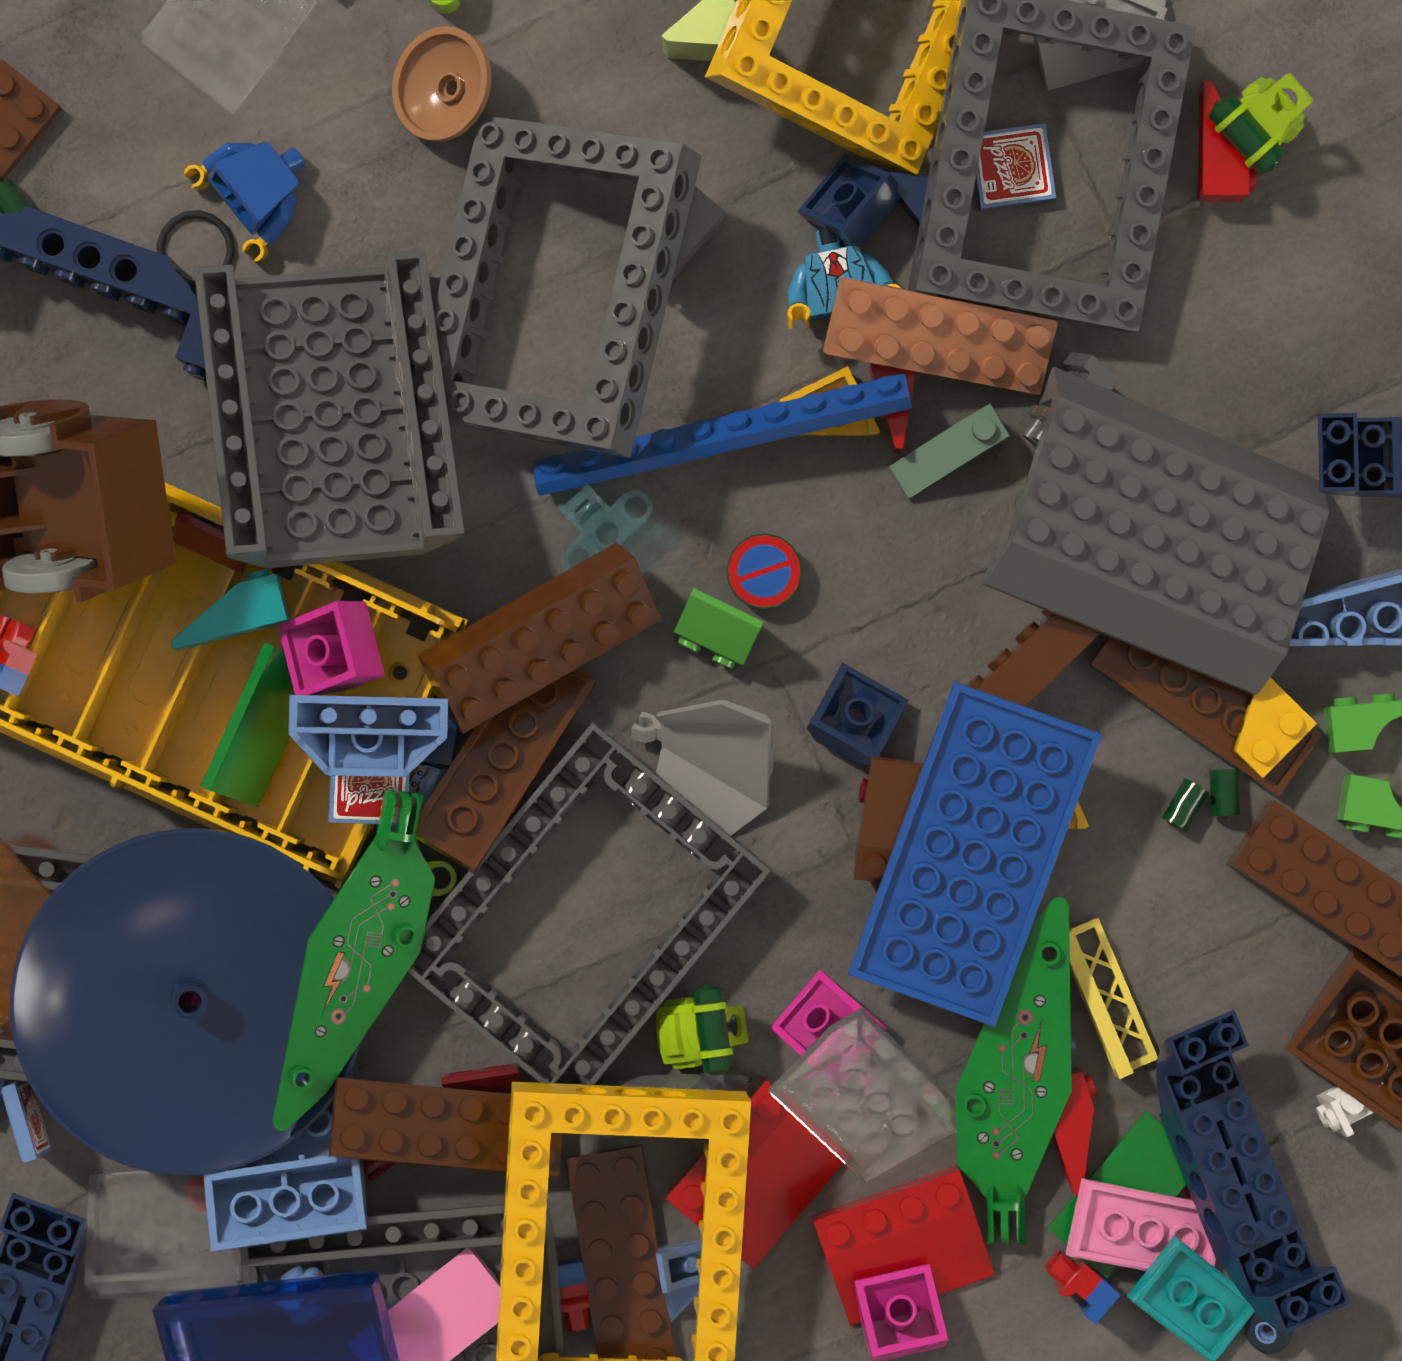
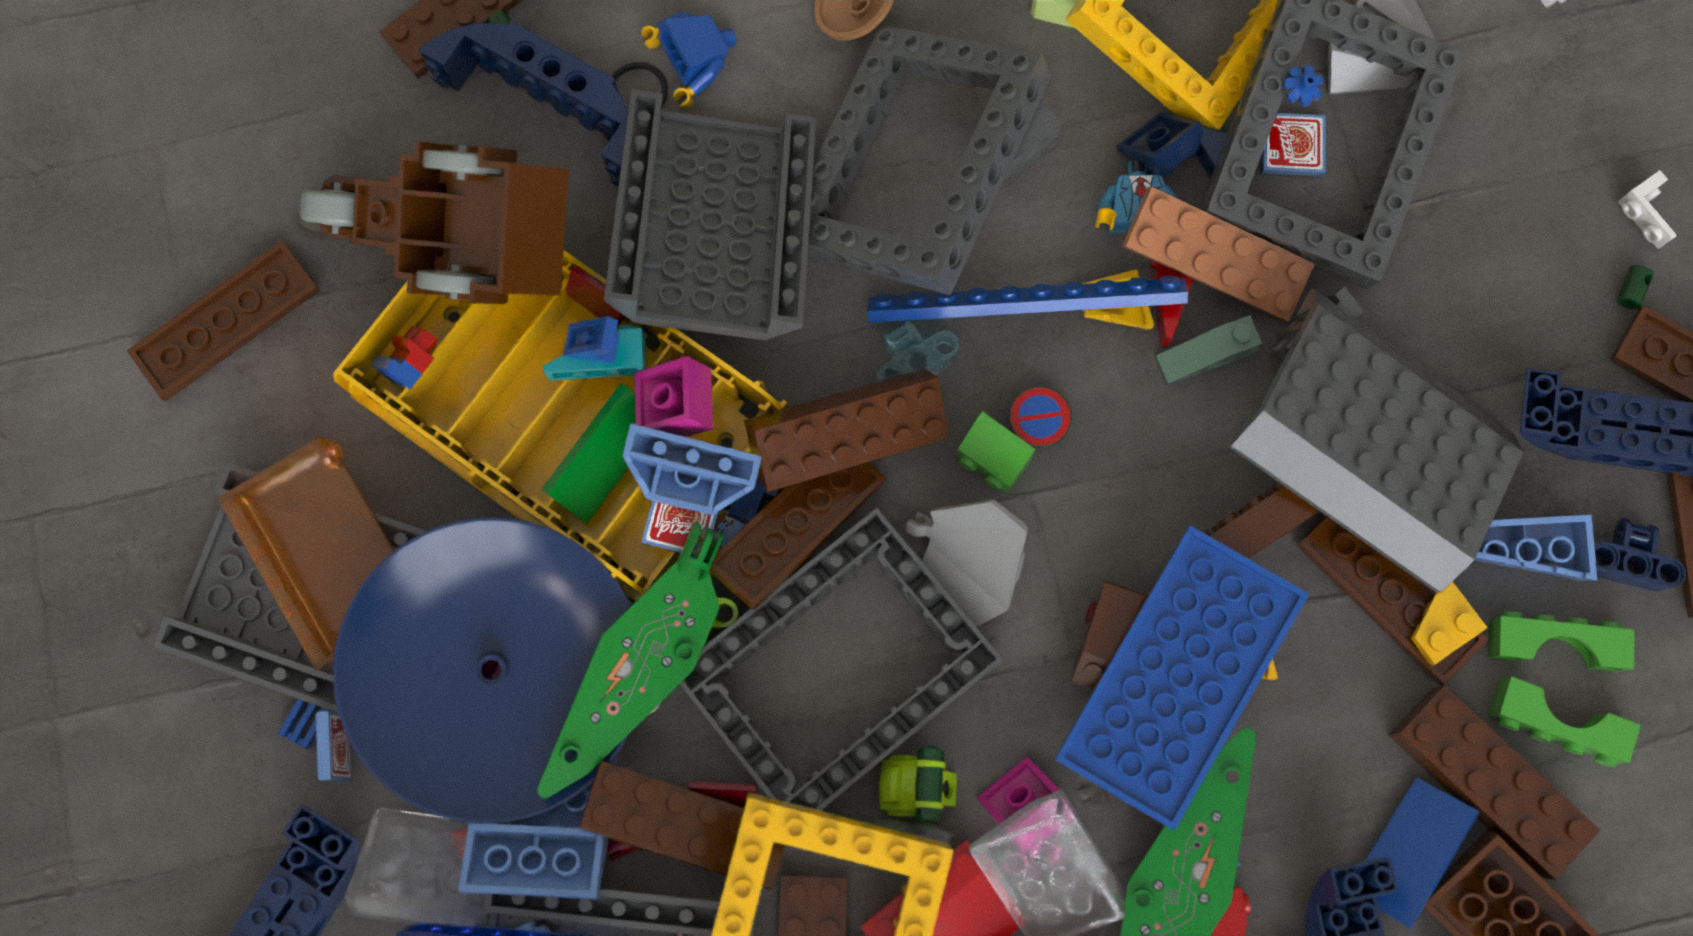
camera: 15 degrees right, 10 degrees down
(221, 603) = (592, 340): none -> blue slope
(856, 716) = (1095, 549): dark blue slope -> none
(998, 114) = (1303, 85): none -> blue plant
(1098, 1009) = (1261, 832): light yellow fence -> none
(1185, 805) = (1362, 677): dark green piece -> none
(1220, 166) = (1464, 162): red slope -> none
(1224, 792) = (1397, 672): dark green piece -> none
(1262, 120) = (1502, 138): lime piece -> none
(1274, 987) = (1421, 846): none -> blue tile

